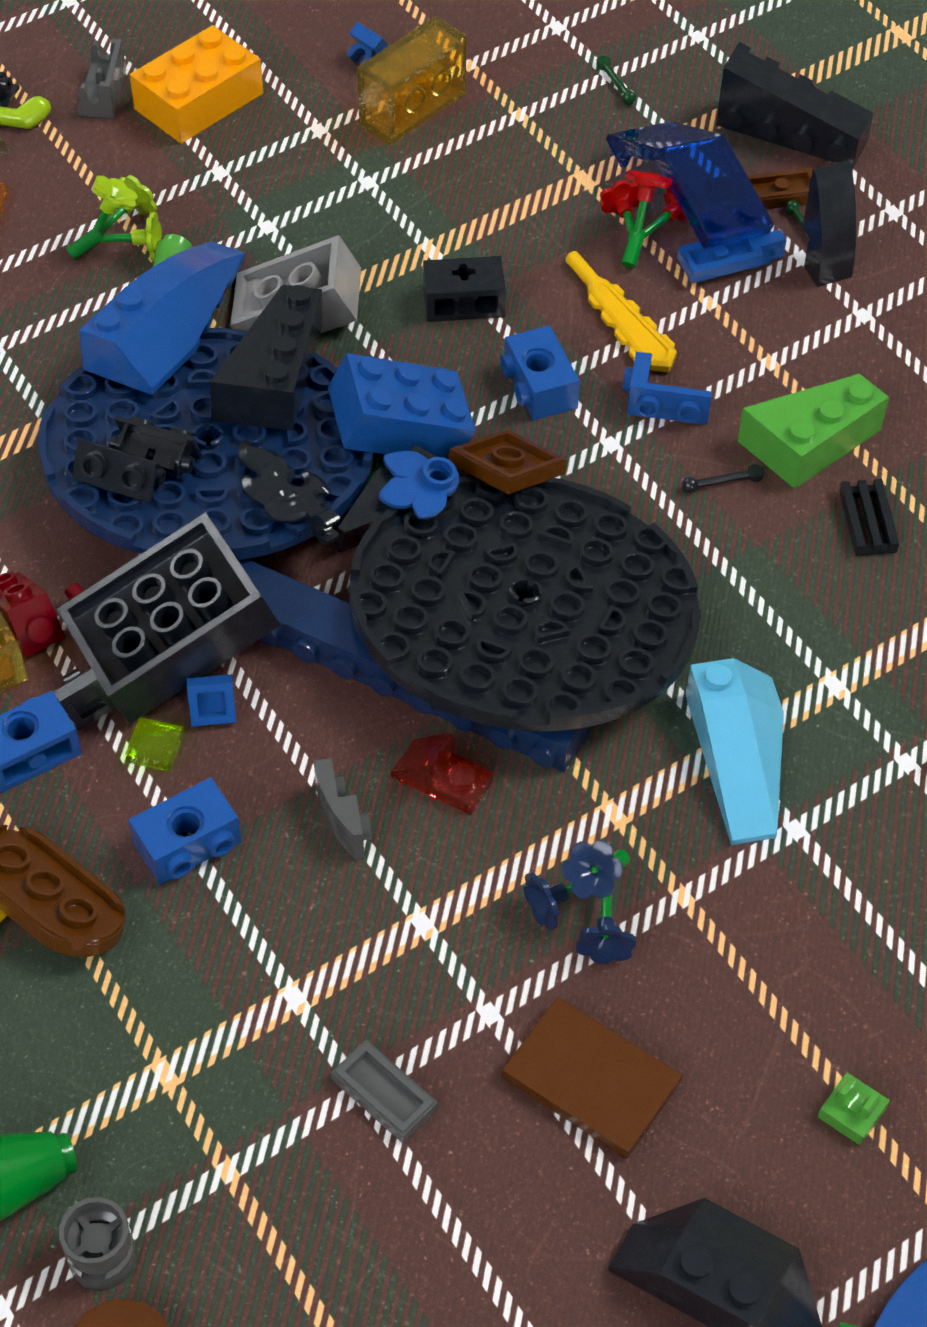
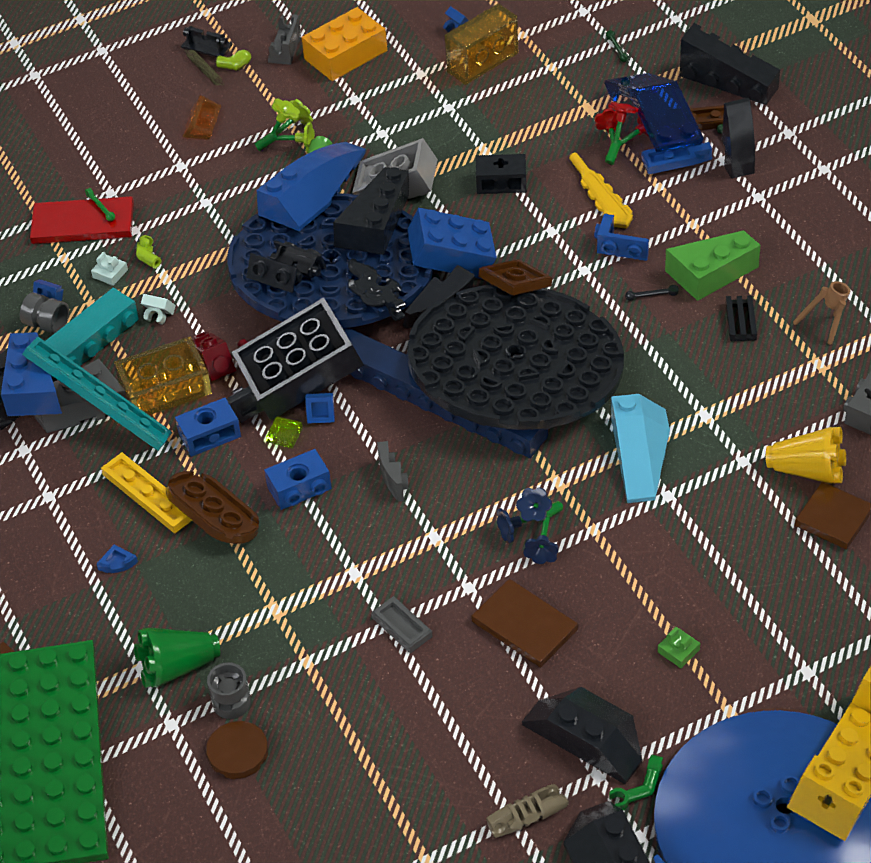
camera: 10 degrees right, 5 degrees down
(416, 484) = (457, 286): blue plate -> none
(440, 773) = (456, 456): clear red slope -> none
(540, 373) = (543, 225): blue brick -> none

